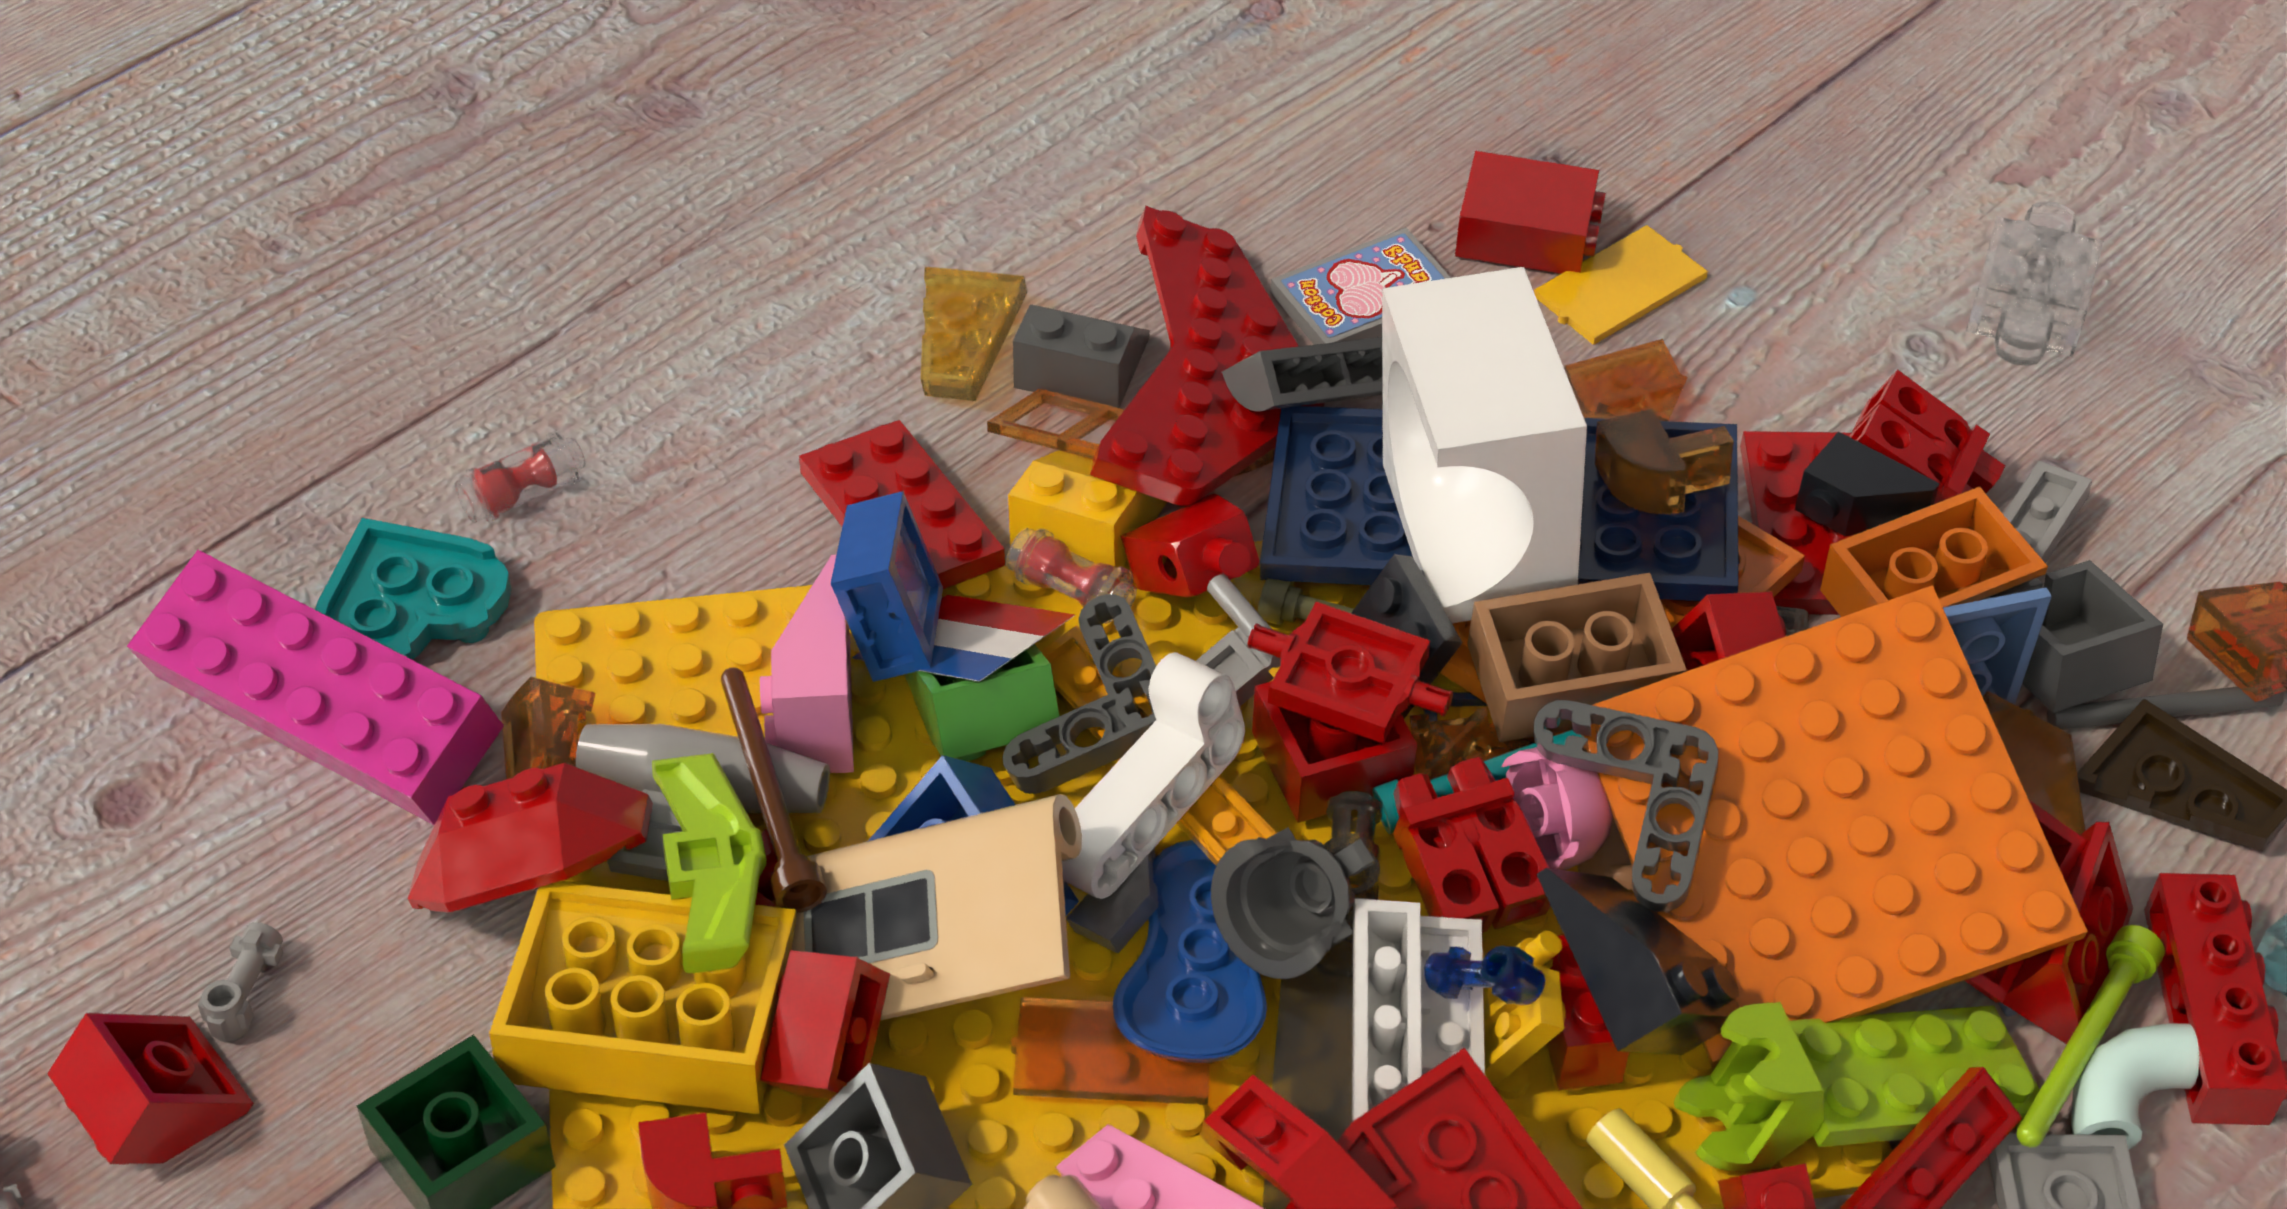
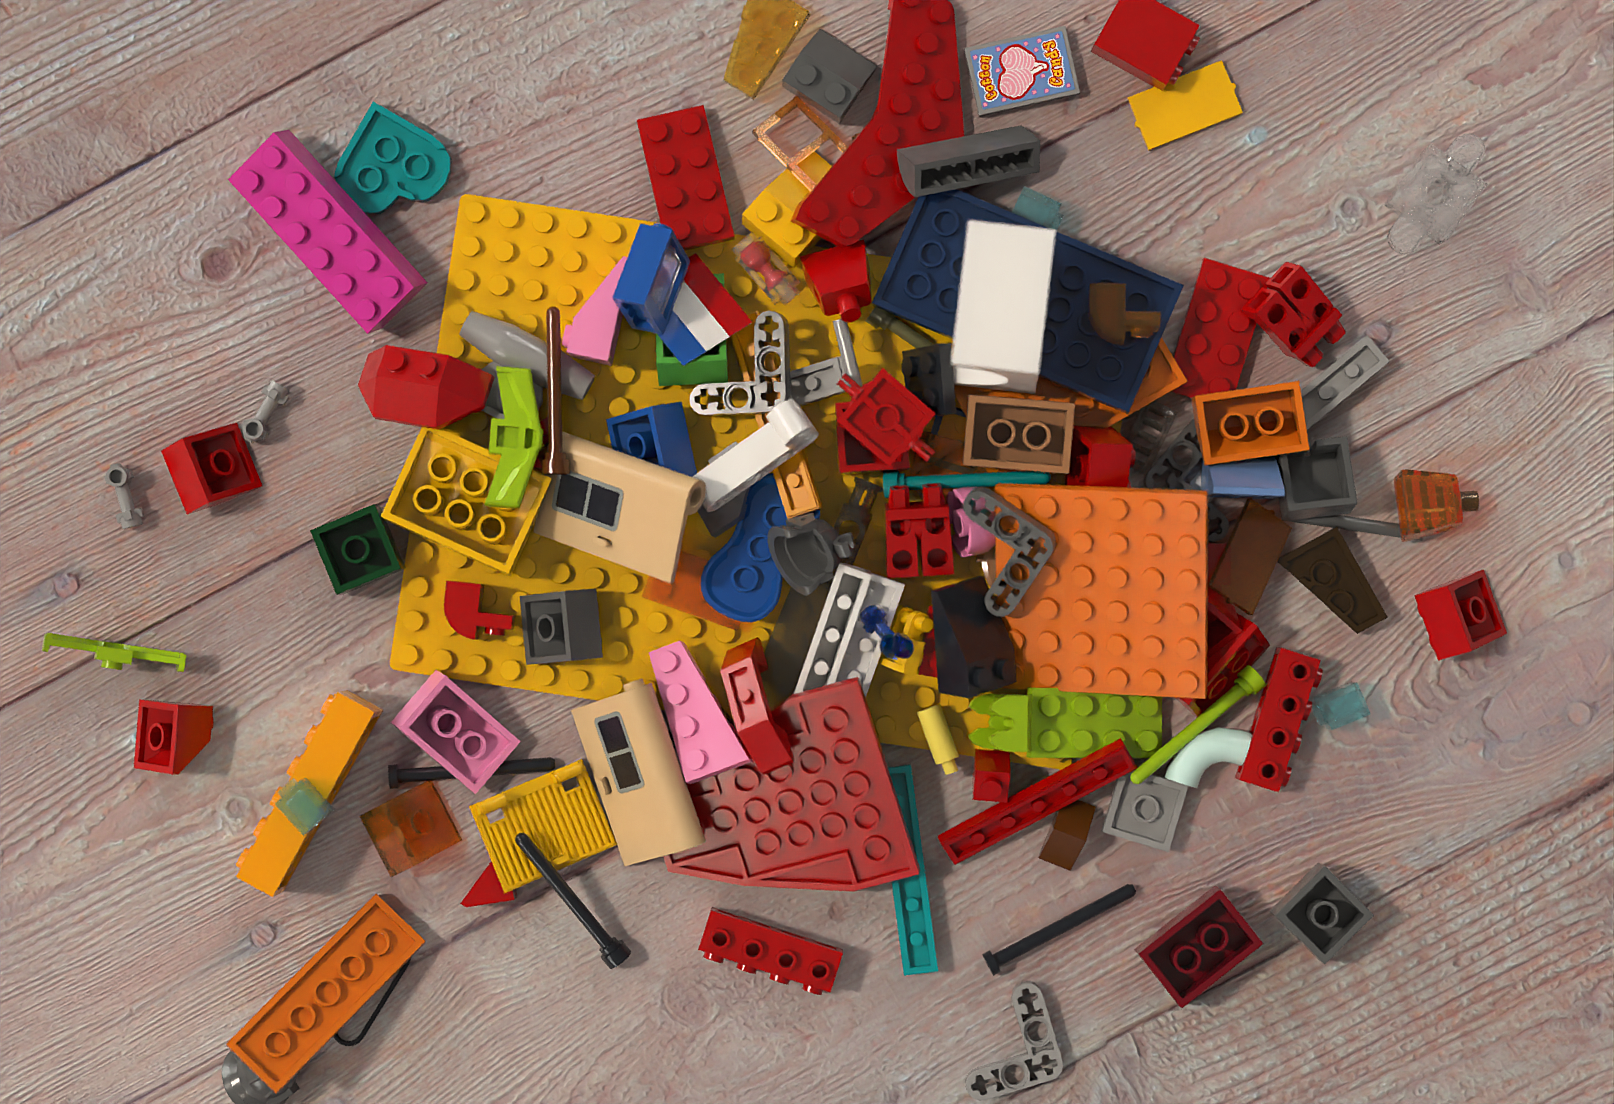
camera: 15 degrees right, 40 degrees up
(500, 487) = (455, 96): clear piece -> none
(543, 725) = (446, 297): clear orange slope -> none
(824, 1023) = (551, 550): red brick -> none
(1627, 382) = (1152, 199): clear orange slope -> none
(1860, 488) = (1241, 341): black slope -> none

